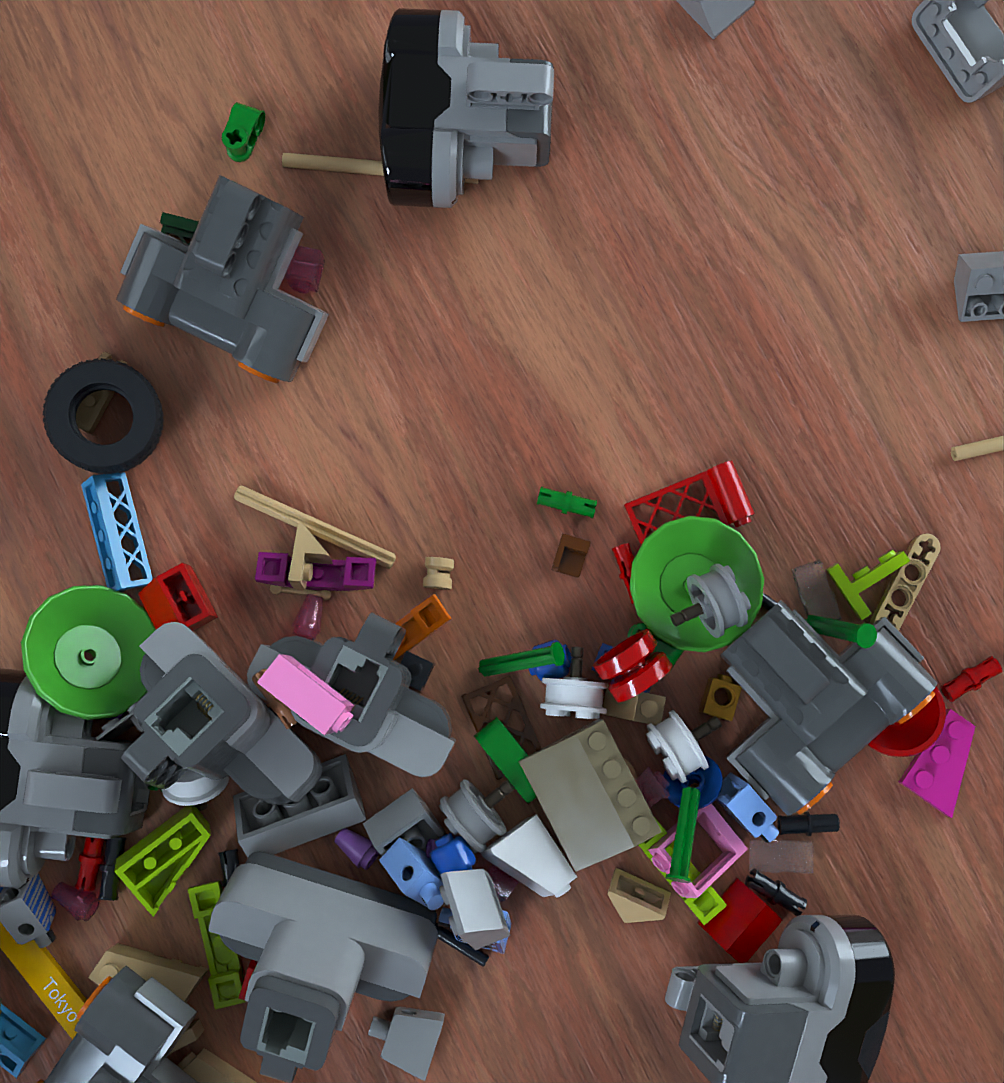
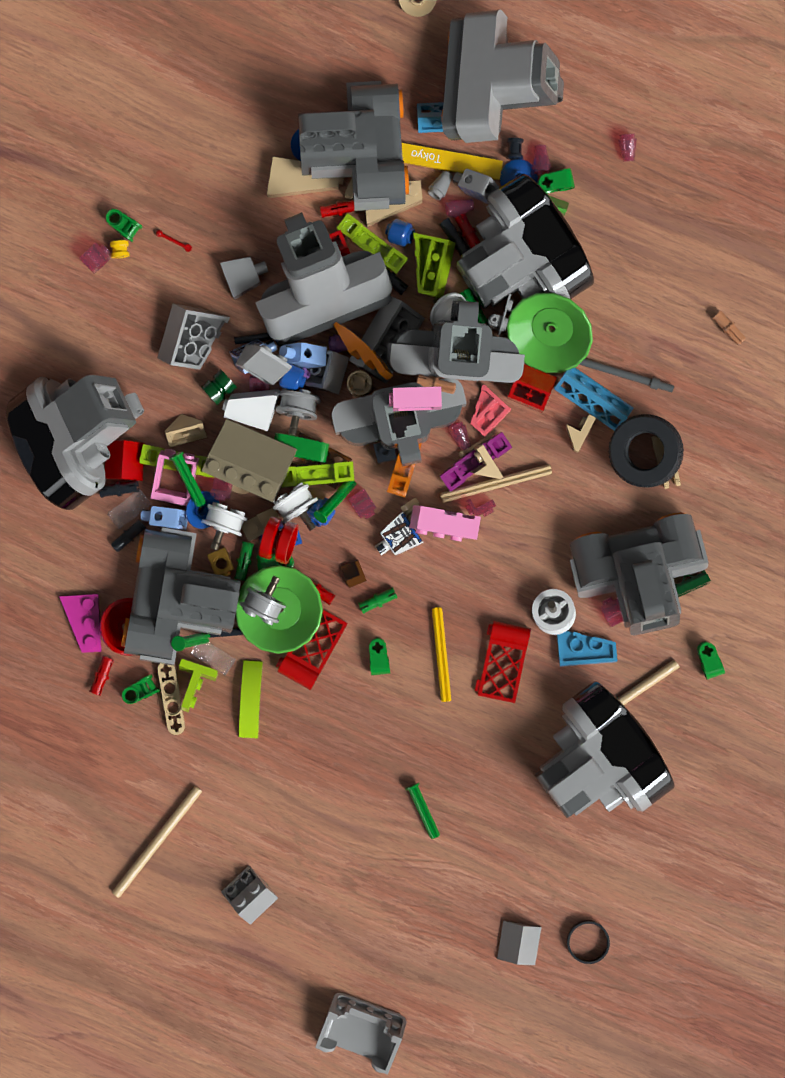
camera: 140 degrees right, 5 degrees up
(33, 494) = (654, 383): none -> dark grey bar
(75, 947) = (440, 186): none -> light grey cone
(172, 501) = (577, 437): none -> tan slope
(172, 929) = (400, 232): none -> blue head
(218, 1022) = (328, 210): none -> red pin
(251, 618) = (488, 411): none -> coral wing
(338, 823) = (360, 349): none -> orange slope
(353, 506) = (484, 509): none -> clear pink bracket
(371, 320) = (554, 611): none -> white wheel
(375, 255) = (584, 650): none -> dark azure wing
(376, 780) = (359, 384): none -> tan wheel
(413, 525) = (444, 523): none -> bright pink wedge
(451, 341) = (506, 636): none -> red piece
(480, 556) = (398, 536): none -> torso
(492, 629) = (363, 504): none -> clear pink brick
(515, 708) = (319, 474): none -> lime slope
(537, 1015) = (190, 336): none -> light grey wedge
(543, 381) = (441, 654): none -> yellow axle
(552, 919) = (219, 387): none -> dark green wheel
(620, 432) = (379, 660): none -> green piece
(674, 689) = (246, 548): none -> green pin
(707, 225) = (423, 810): none -> green axle
(810, 509) = (250, 699): none -> lime slope
(935, 623) = (141, 690): none -> green piece

